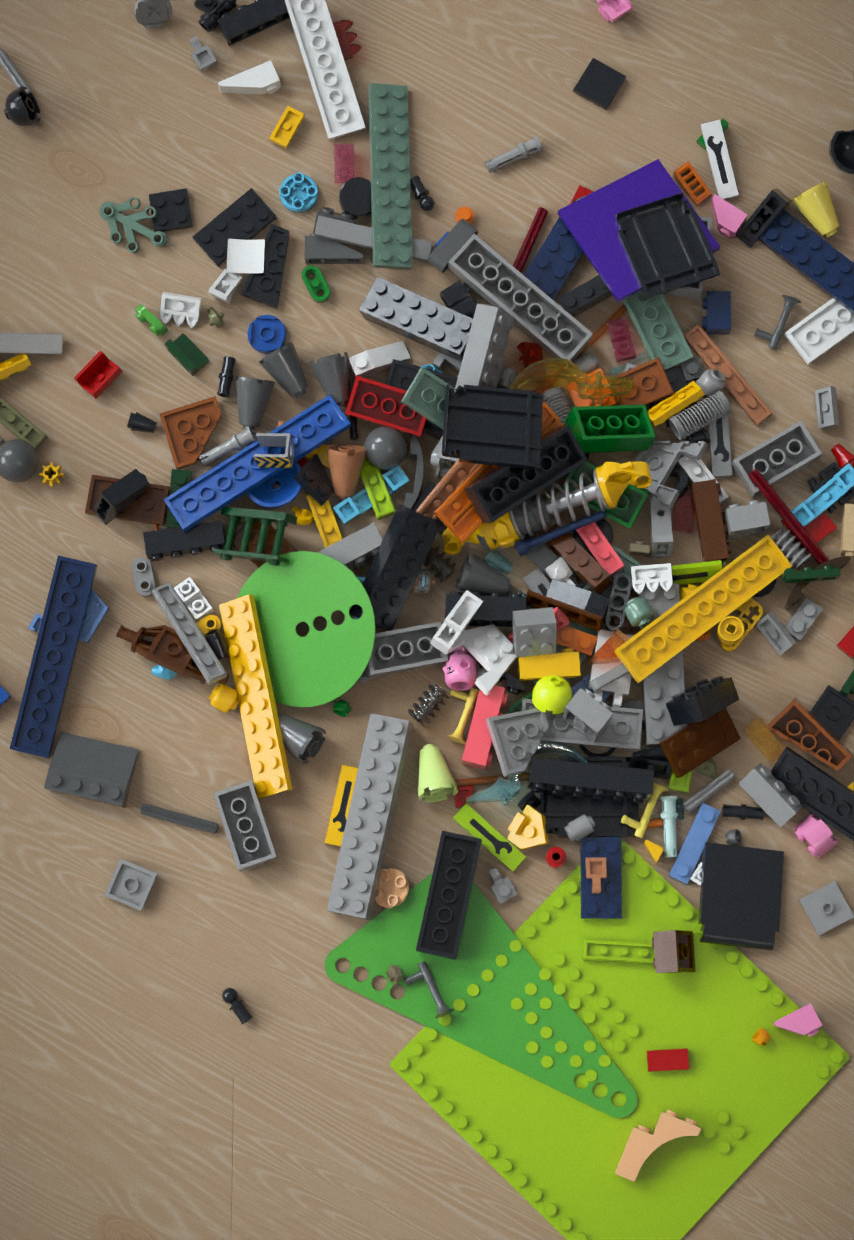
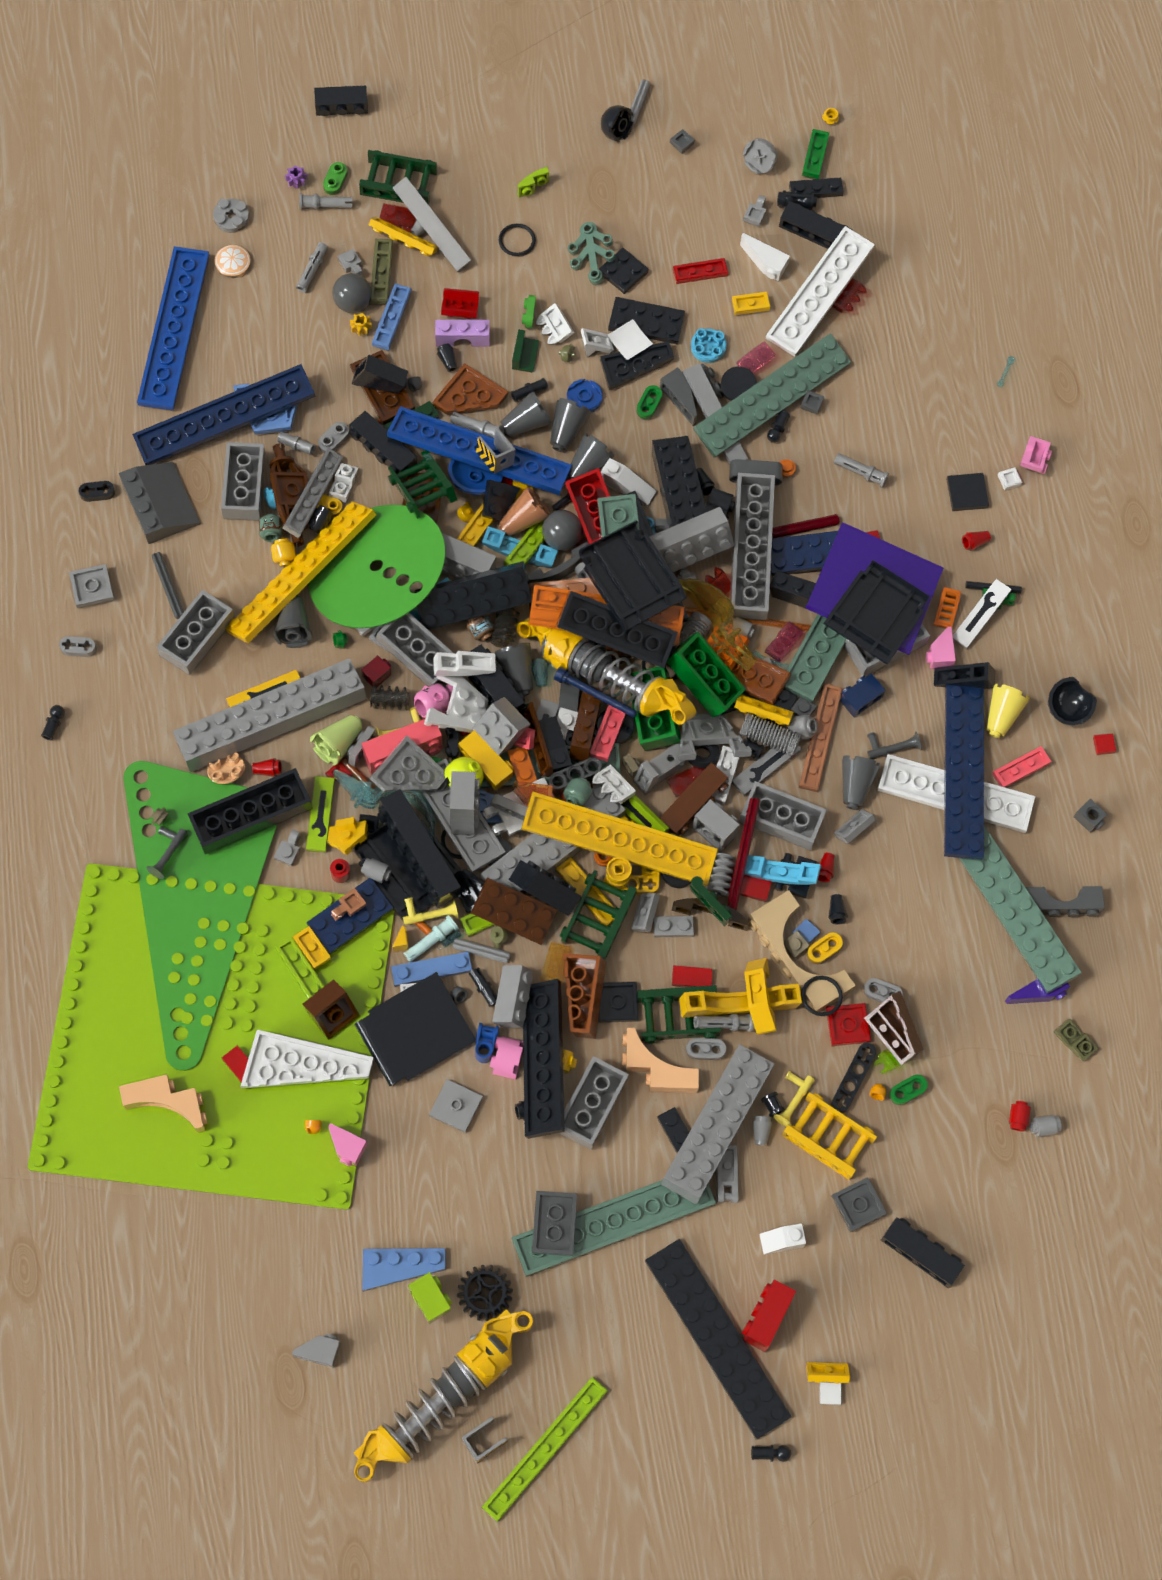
camera: 40 degrees right, 10 degrees down
(25, 229) = (537, 178): none -> lime slope
(44, 820) = (96, 491): none -> black beam
(64, 442) = (391, 317): none -> medium blue plate
(67, 262) = (514, 253): none -> black tyre
(83, 64) = (682, 141): none -> dark grey plate
(125, 613) = (296, 443): none -> light grey pin
(131, 684) = (243, 481): none -> light grey brick
(134, 384) = (473, 330): none -> lavender arch
(146, 469) = (414, 383): none -> dark grey hinge
(176, 932) = (77, 647): none -> light grey beam
(192, 692) = (270, 527): none -> sand green head
(221, 145) = (700, 271): none -> red tile
(395, 698) = (376, 671): none -> dark red brick
(415, 852) = (268, 767): none -> red cone
(420, 147) = (812, 402): none -> dark grey plate
(427, 292) = (705, 482): none -> black cone
(458, 768) = (355, 752): none -> light grey plate
(606, 929) = (312, 947): none -> yellow plate
(613, 39) = (1009, 478): none -> white tile
(648, 112) = (972, 540): none -> red cone
(693, 138) = (979, 586): none -> black bar
(694, 1016) = (289, 1061): none -> white wing
(722, 666) = (576, 877): none -> yellow tile
(764, 657) = (609, 931): none -> dark green fence
(790, 375) = (857, 779): none -> dark grey cone
(790, 843) = (485, 1040): none -> blue piece

